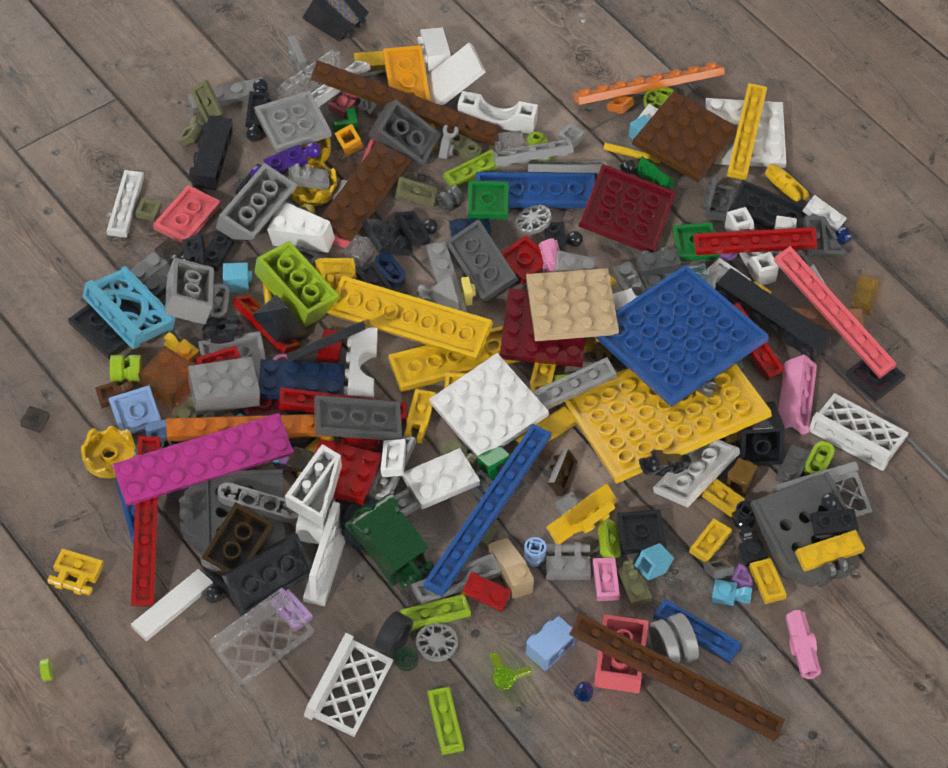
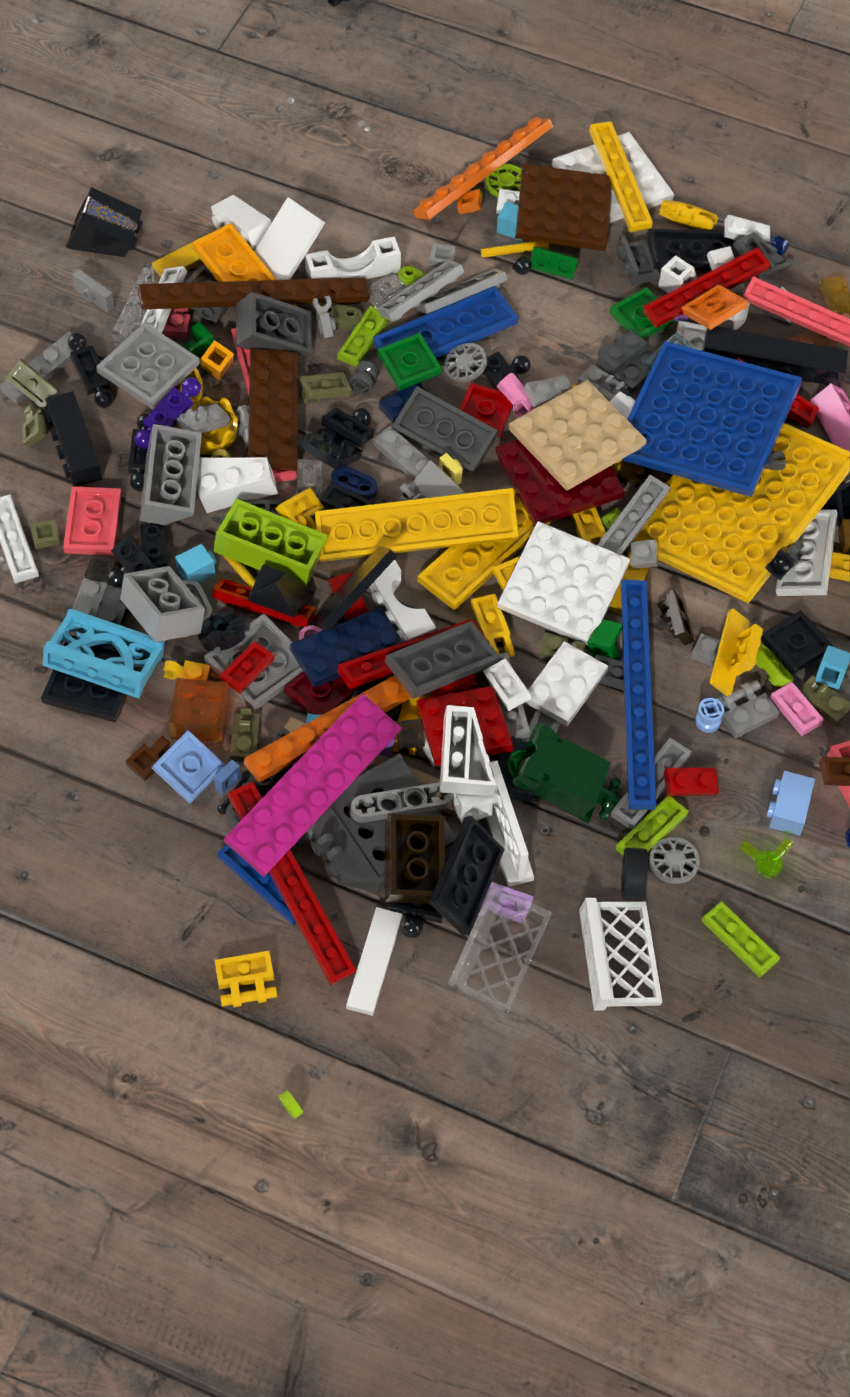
camera: 30 degrees left, 5 degrees up
(34, 419) = (80, 829): clear smoke plate -> none
(106, 441) = (189, 810): yellow plate -> none
(125, 368) = (137, 727): lime wheel -> none
(223, 385) = (273, 691): light grey brick -> none
(406, 659) = (657, 894): clear green tile -> none
(514, 568) = (707, 745): tan slope -> none
(566, 414) = (644, 554): none -> light grey plate
(627, 209) = (554, 309): dark red plate -> none
(745, 256) = (714, 307): none -> orange plate

